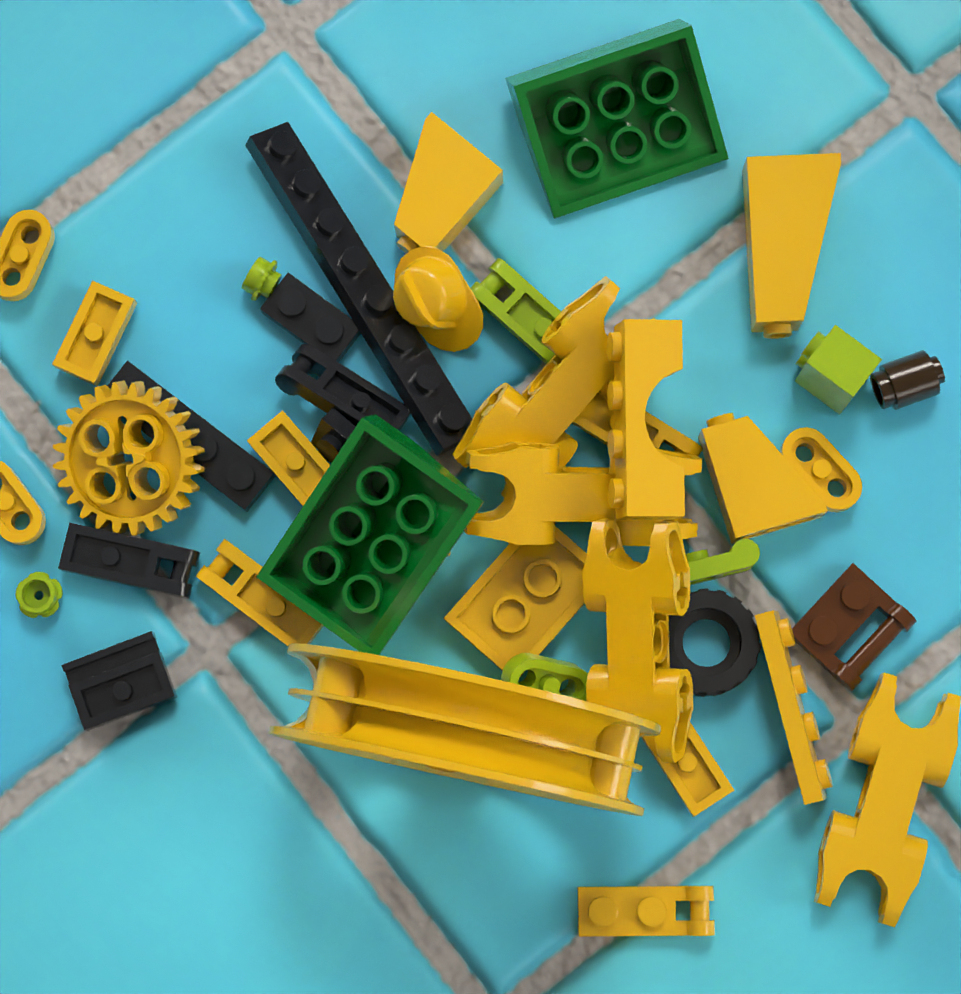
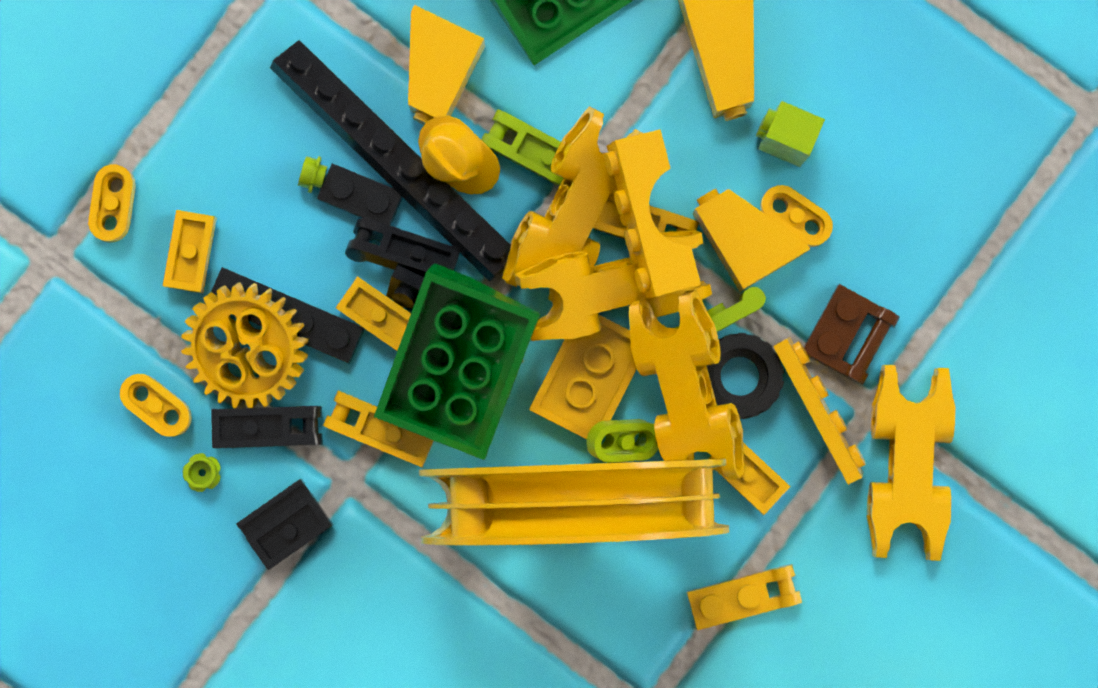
camera: 20 degrees left, 5 degrees up
(907, 380) = (847, 127): dark brown brick -> none

